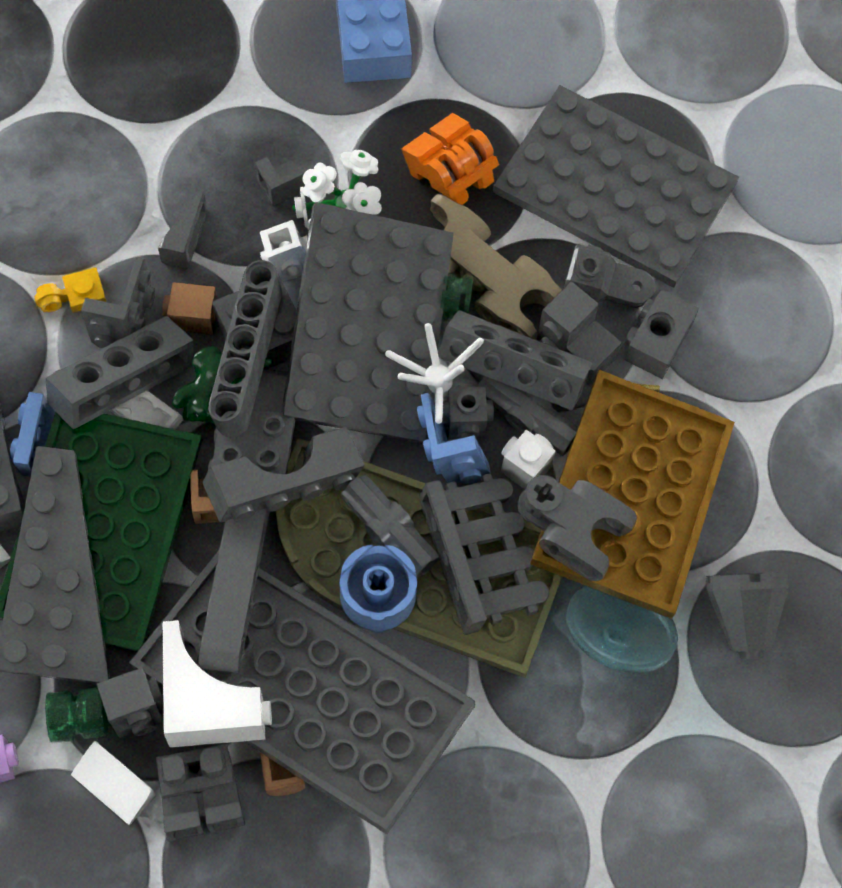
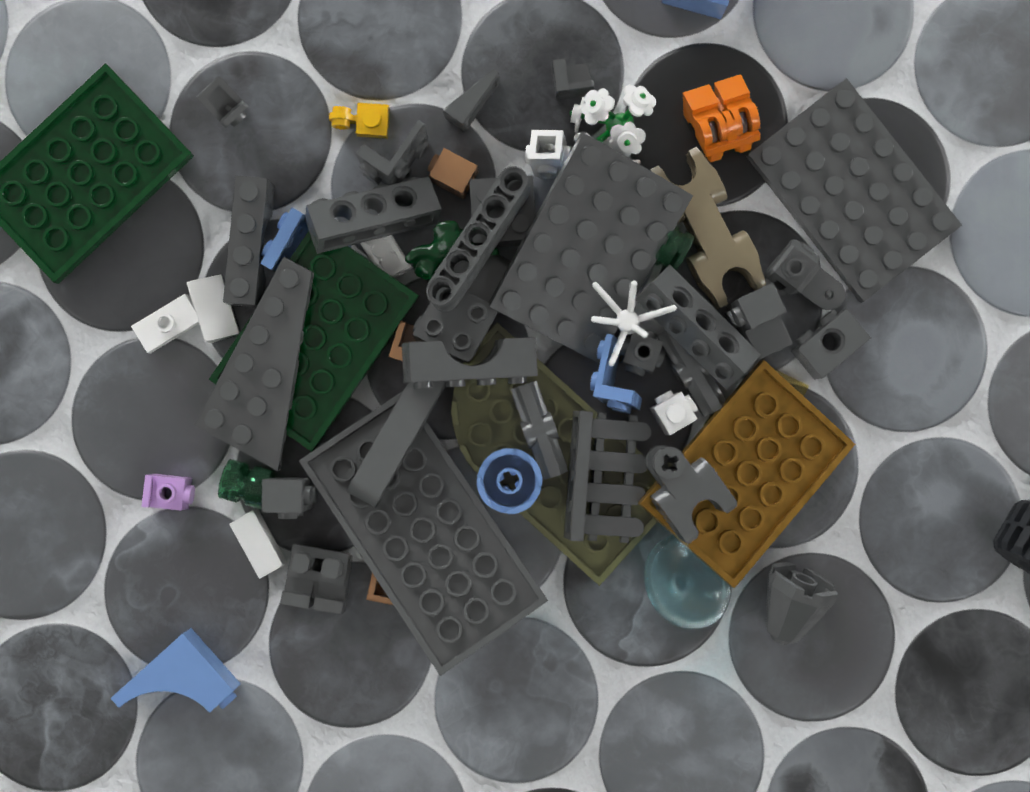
camera: 25 degrees right, 20 degrees up
(203, 708) = (335, 524): white arch -> none

